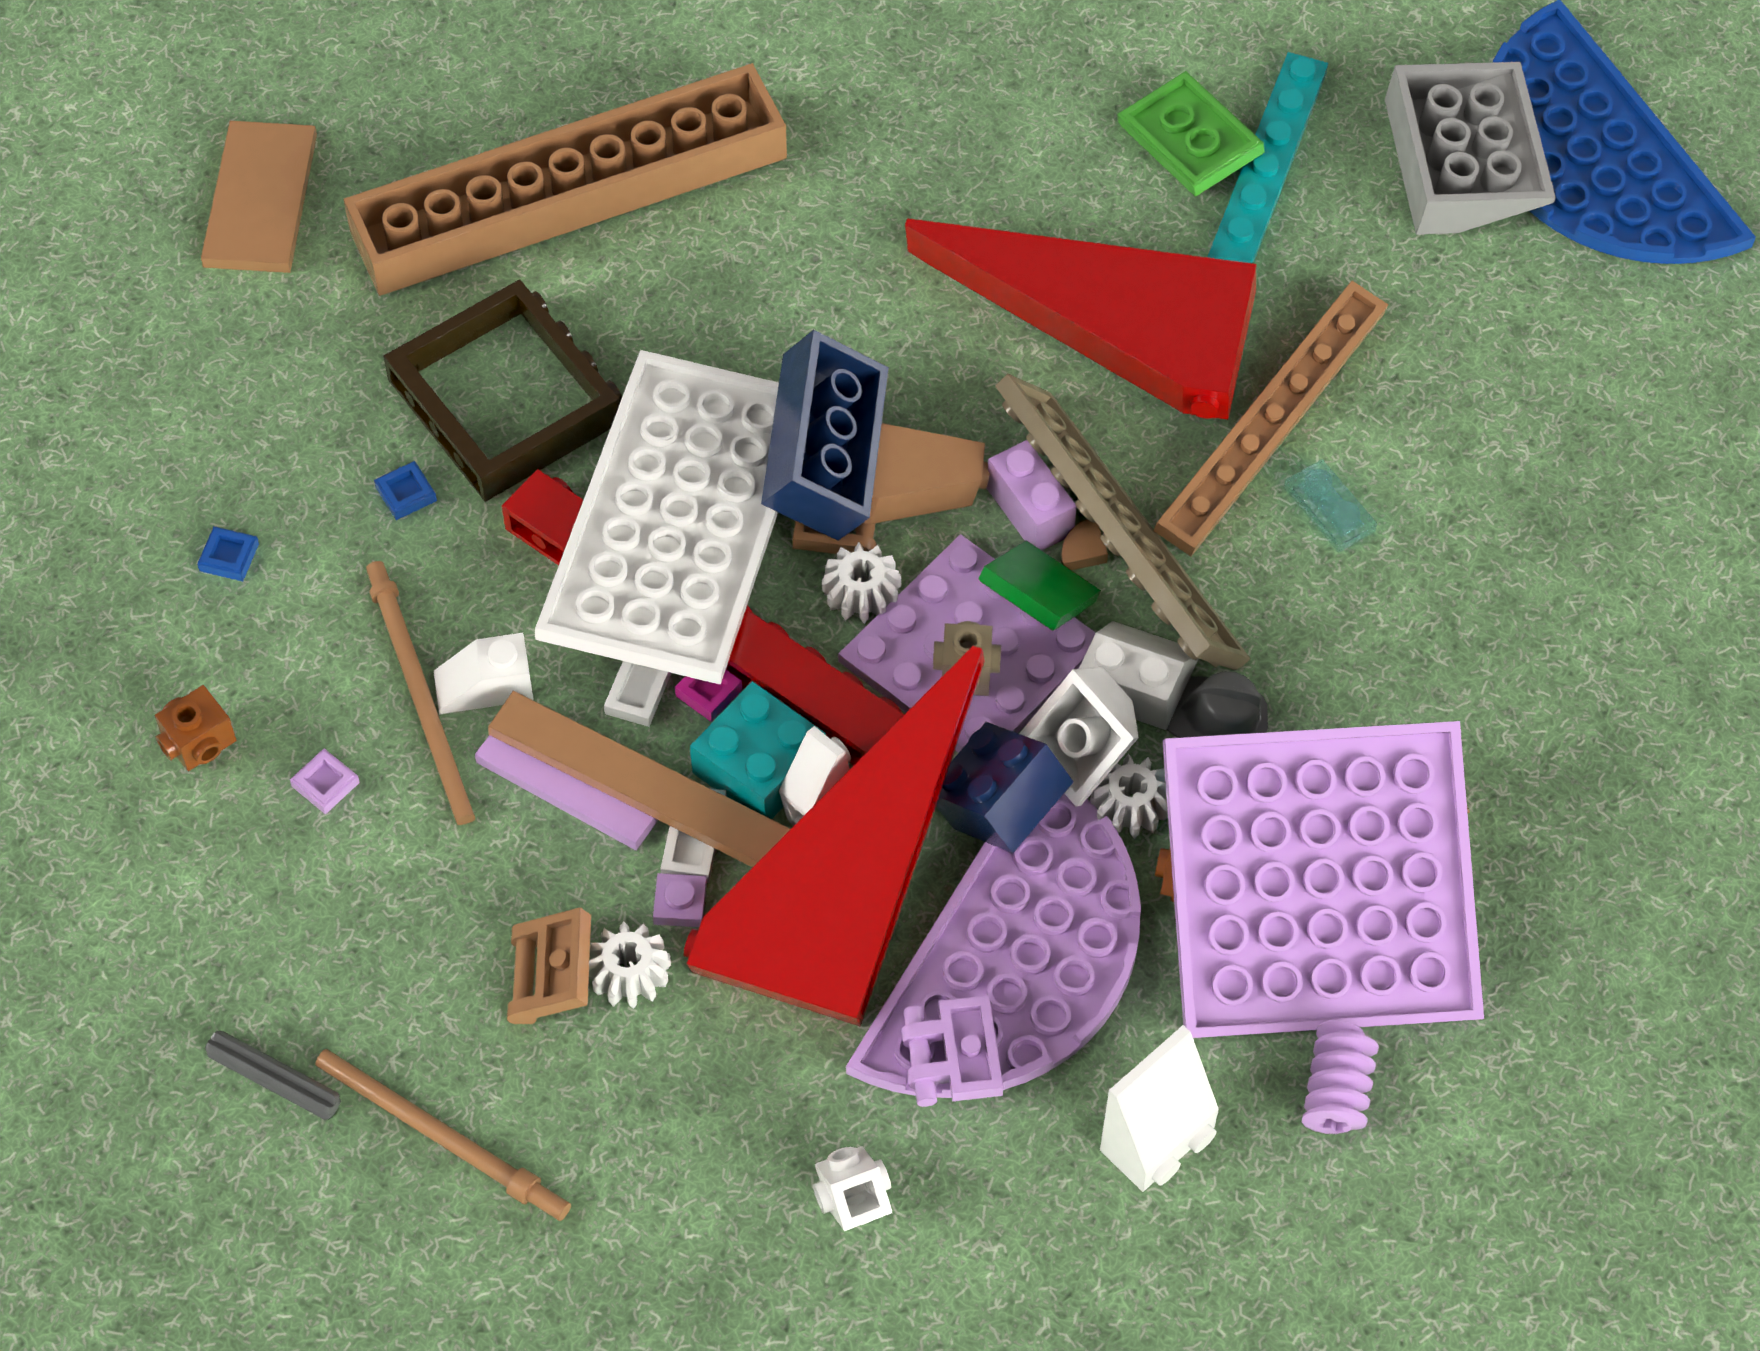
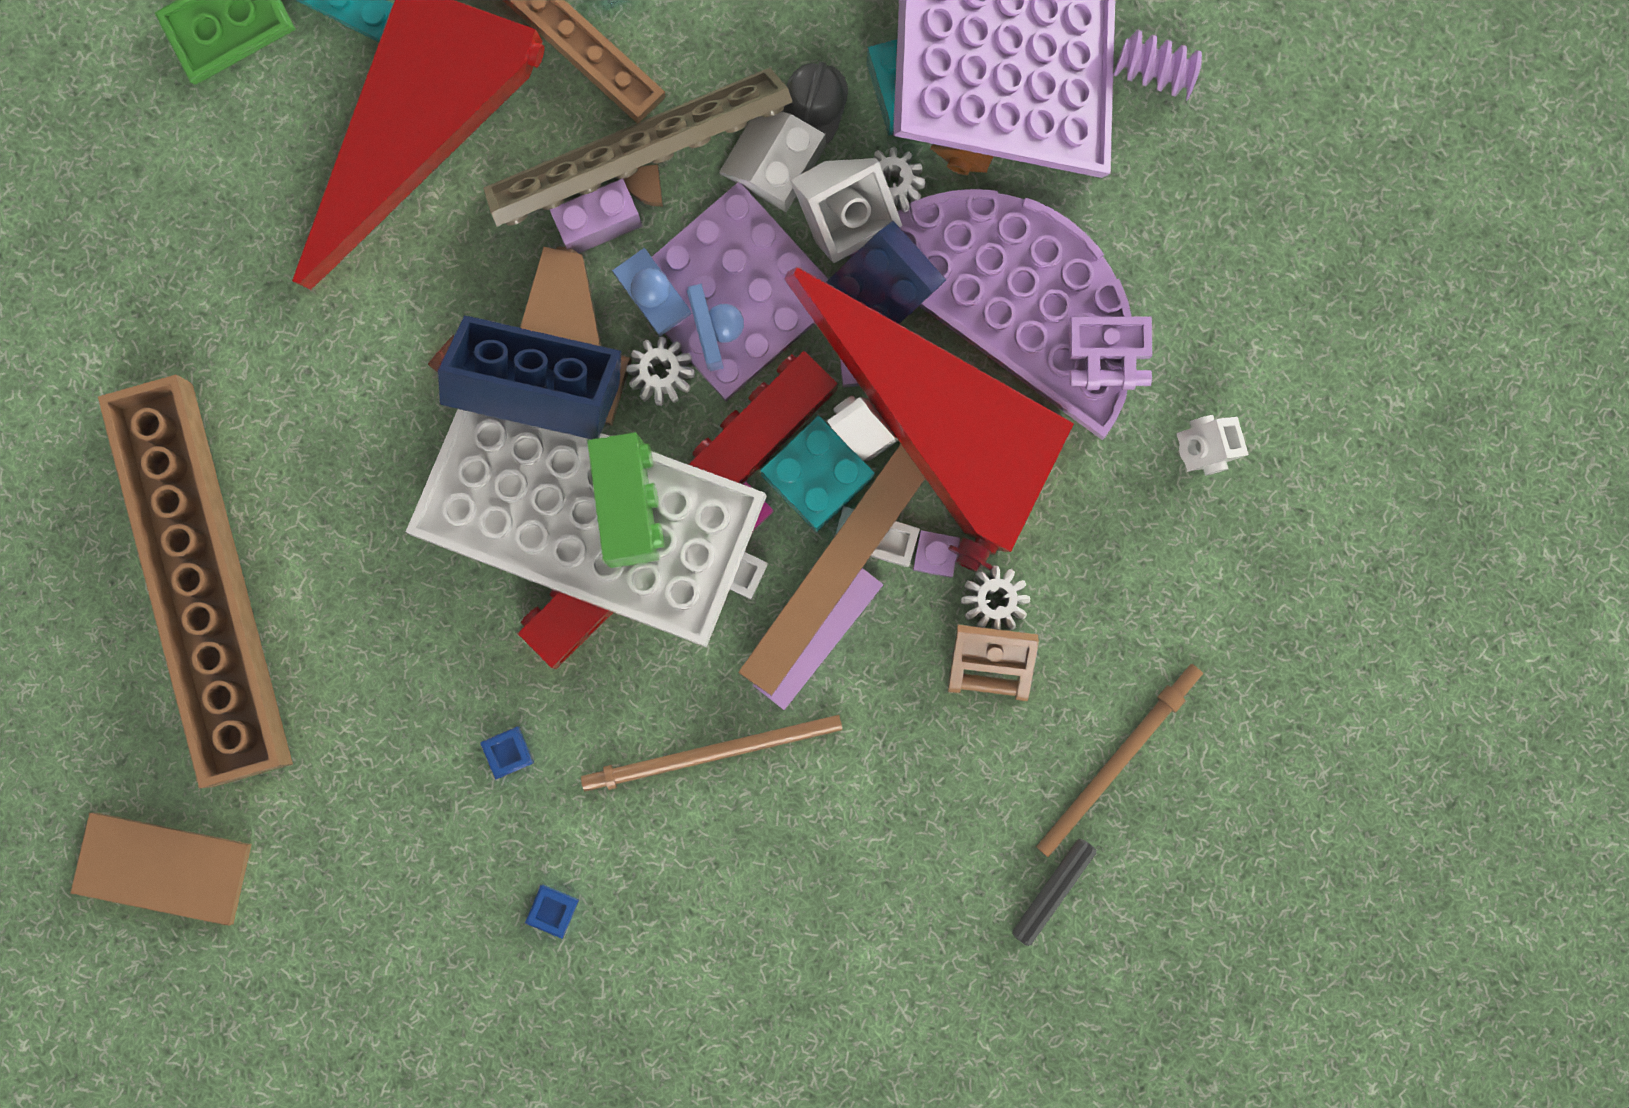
camera: 85 degrees left, 25 degrees up
(194, 728) = (731, 931): dark orange brick -> none
(324, 781) = (789, 837): lavender tile -> none
(483, 674) = (711, 697): white slope -> none
(534, 452) = (452, 713): dark brown window -> none
(677, 924) = (971, 555): none -> dark red plate
(693, 530) = (625, 500): none -> bright green brick
(916, 614) = (719, 324): none -> medium blue tile
(950, 556) = (652, 292): none -> medium blue tile
(958, 640) = (762, 304): dark tan brick -> none
(1039, 585) = (688, 223): green tile -> none
(1159, 1112) = (1182, 204): white slope -> none

